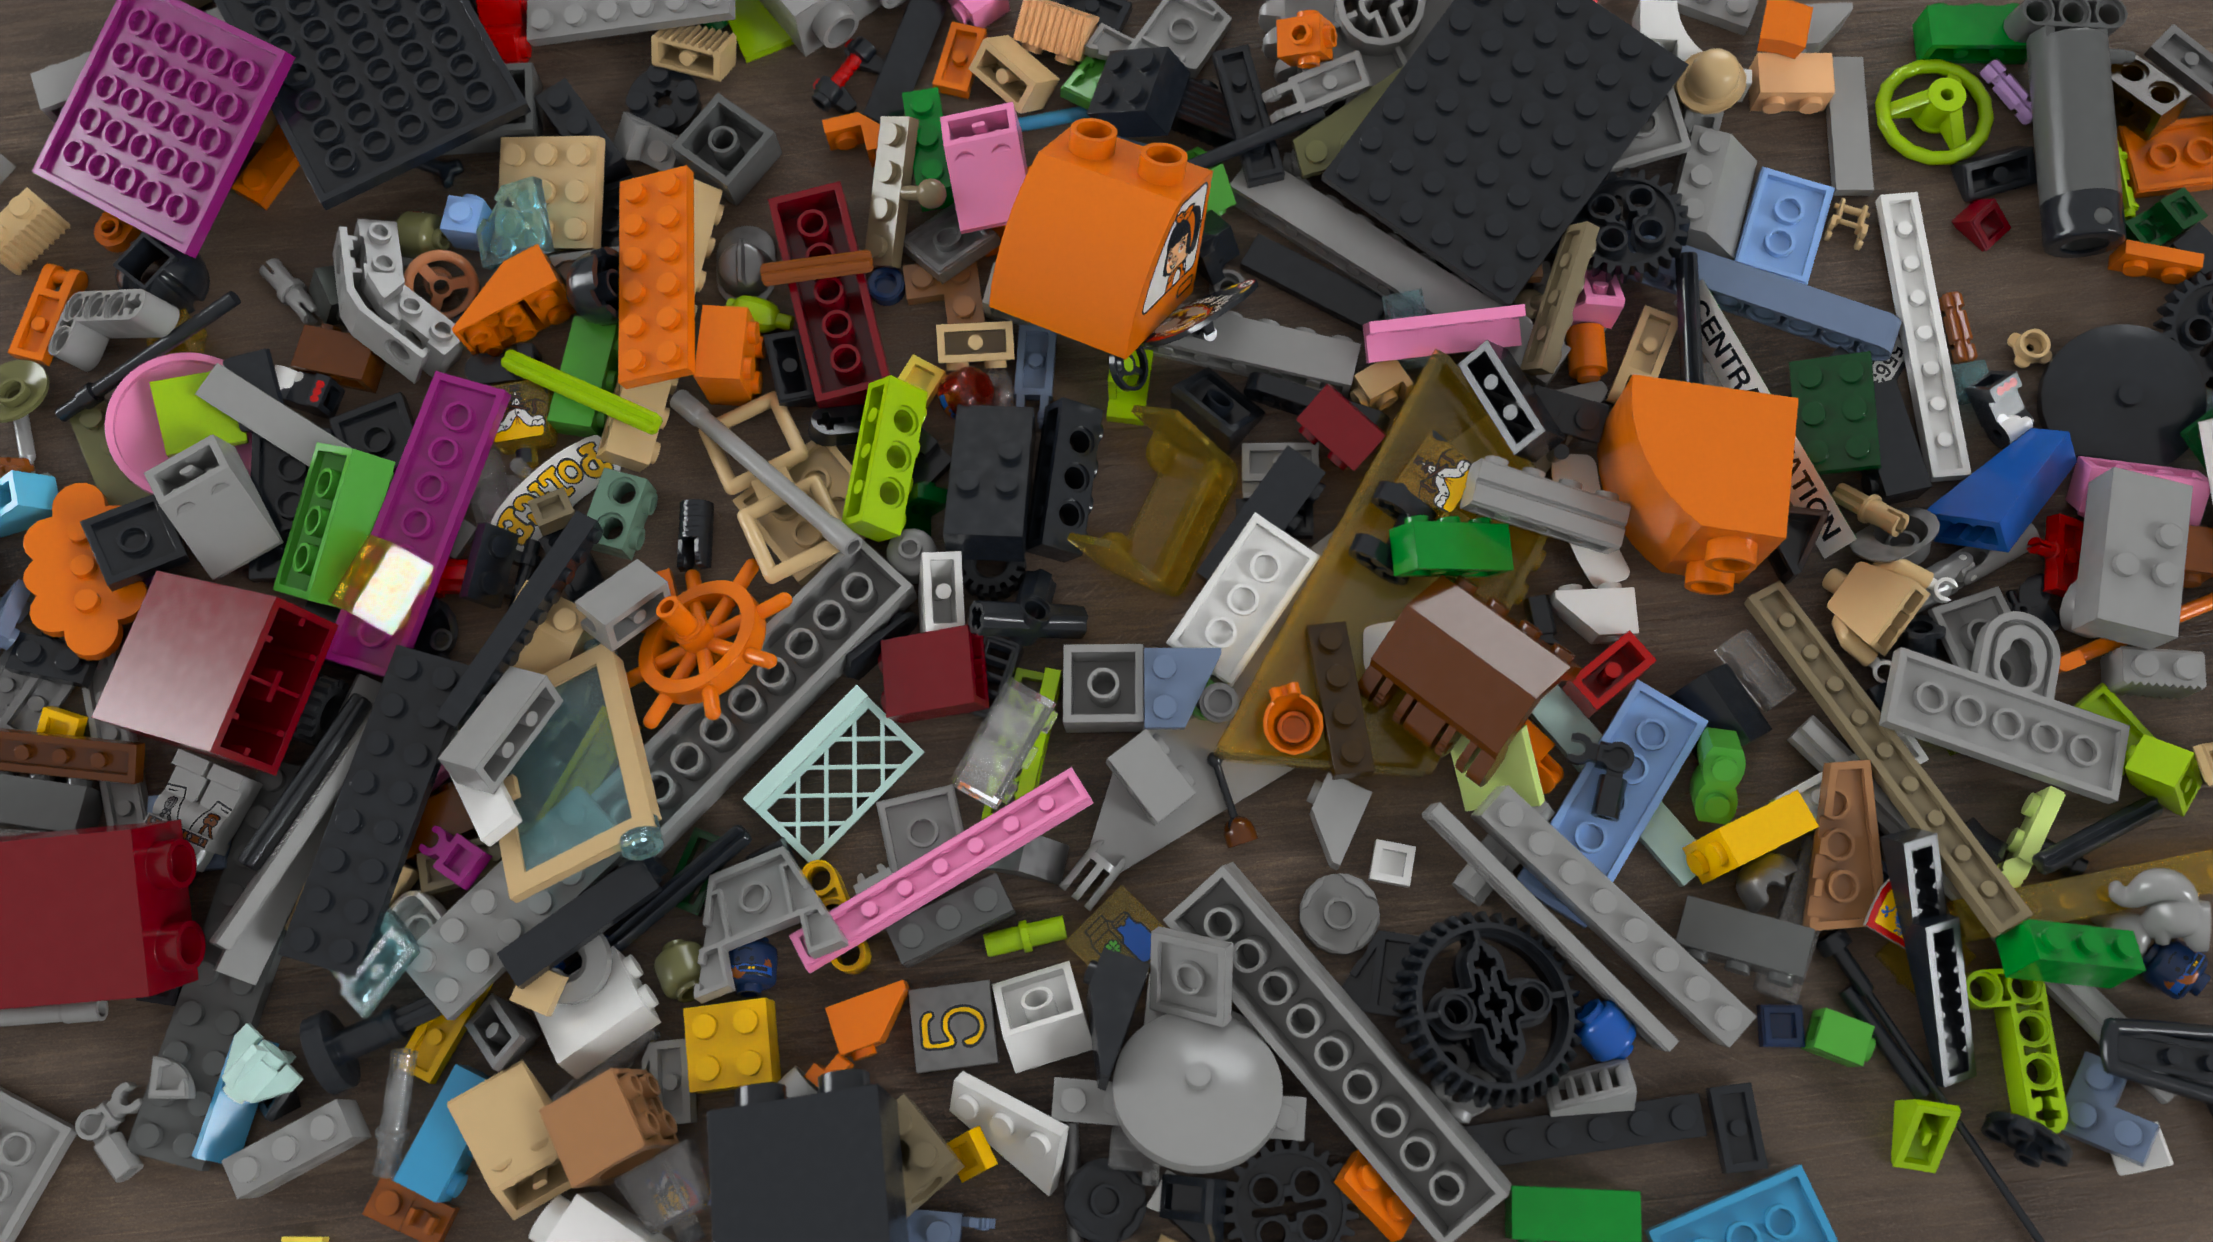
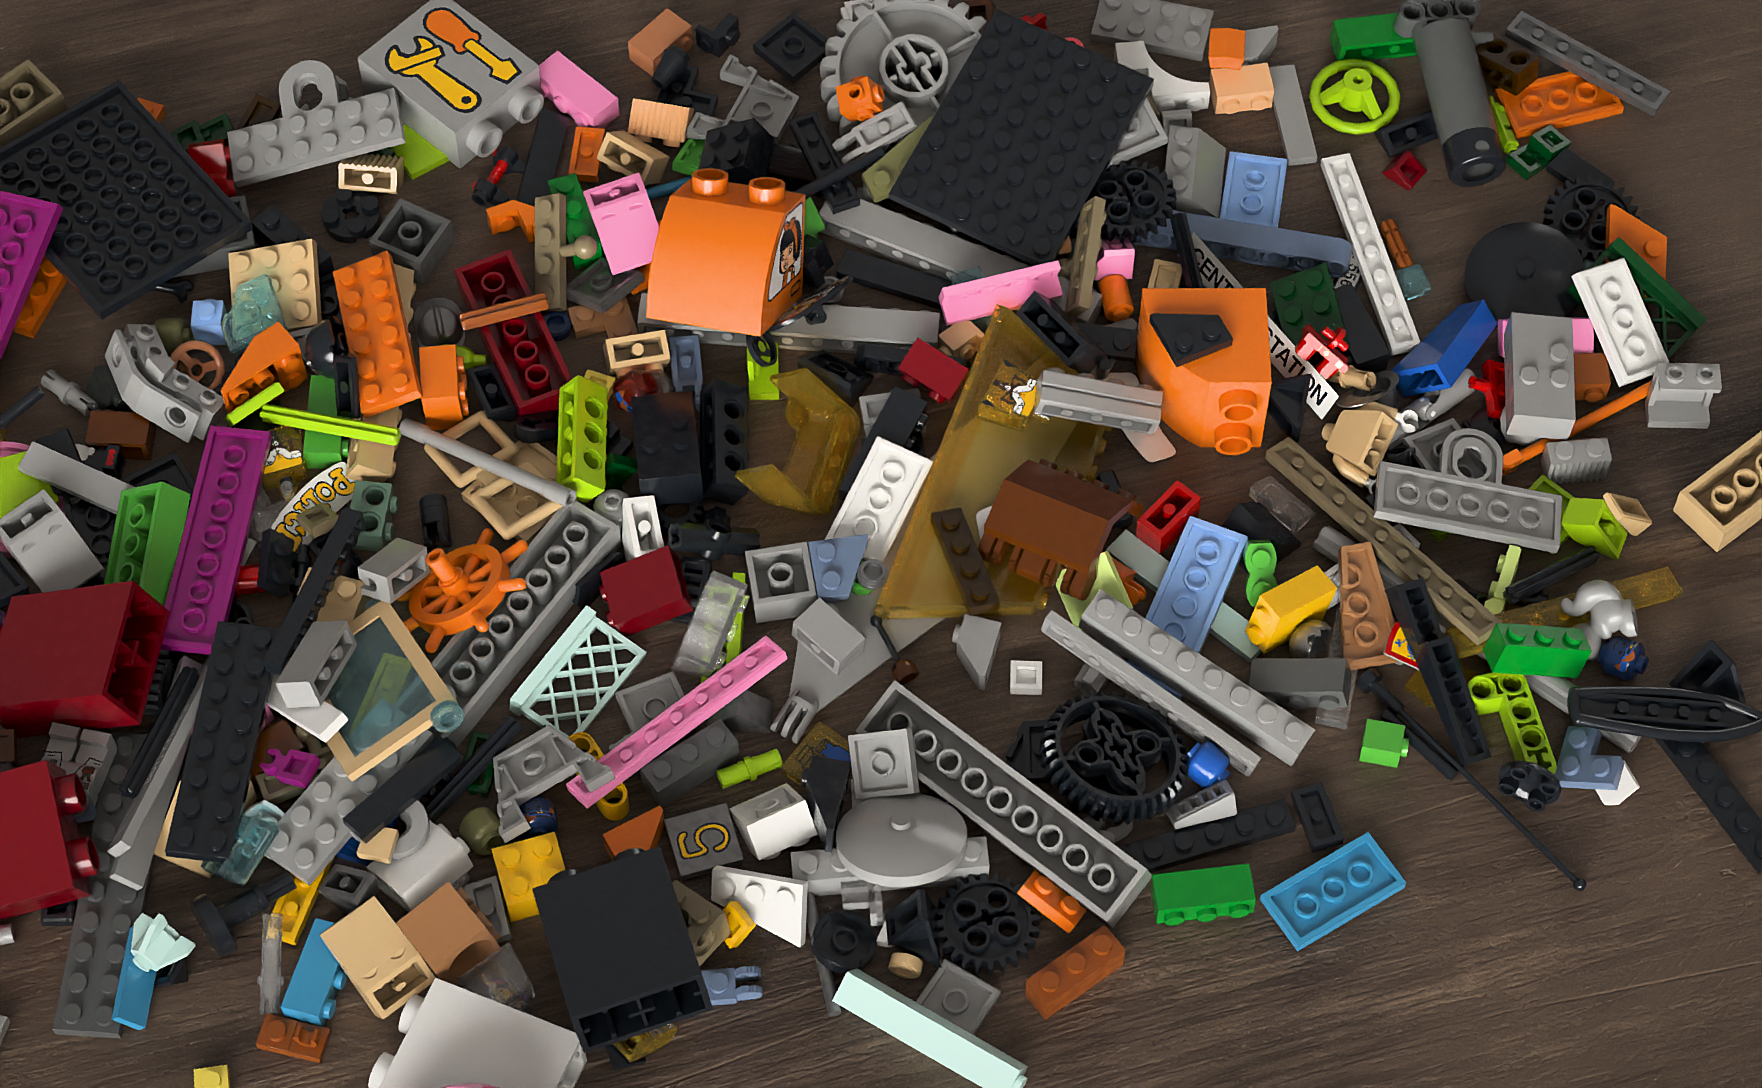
camera: 15 degrees left, 15 degrees down
(101, 1127) = (28, 1017): light grey bar -> none
(170, 1080) = (84, 968): light grey tile -> none
(296, 1148) = (195, 1002): light grey brick -> none
(382, 584) = (198, 578): clear yellow slope -> none
(494, 348) = (254, 404): none -> lime tile
(605, 341) = (346, 385): none -> black slope
(645, 142) = (344, 245): light grey slope -> none
(1292, 720) = (930, 577): orange piece -> none
(1339, 914) = (991, 718): light grey tile -> none
(1398, 505) = (991, 456): black connector -> none
(1450, 547) = (1019, 439): green brick -> none
(1599, 613) = (1150, 476): white slope -> none
(1611, 787) = (1182, 573): black bar -> none
(1688, 455) = (1190, 335): none -> black wing
(1711, 82) = (1177, 93): tan hat -> none
(1780, 1026) = (1340, 745): dark blue tile -> none
(1855, 473) = (1332, 358): none -> hips
(1860, 228) = (1312, 184): tan piece -> none
(1921, 1133) = (1454, 796): lime slope -> none
(2000, 406) = (1434, 293): black leg -> none
(2008, 90) = (1407, 73): lavender axle -> none
(2037, 341) = (1452, 244): tan plate -> none
(2155, 261) = (1535, 178): orange plate -> none

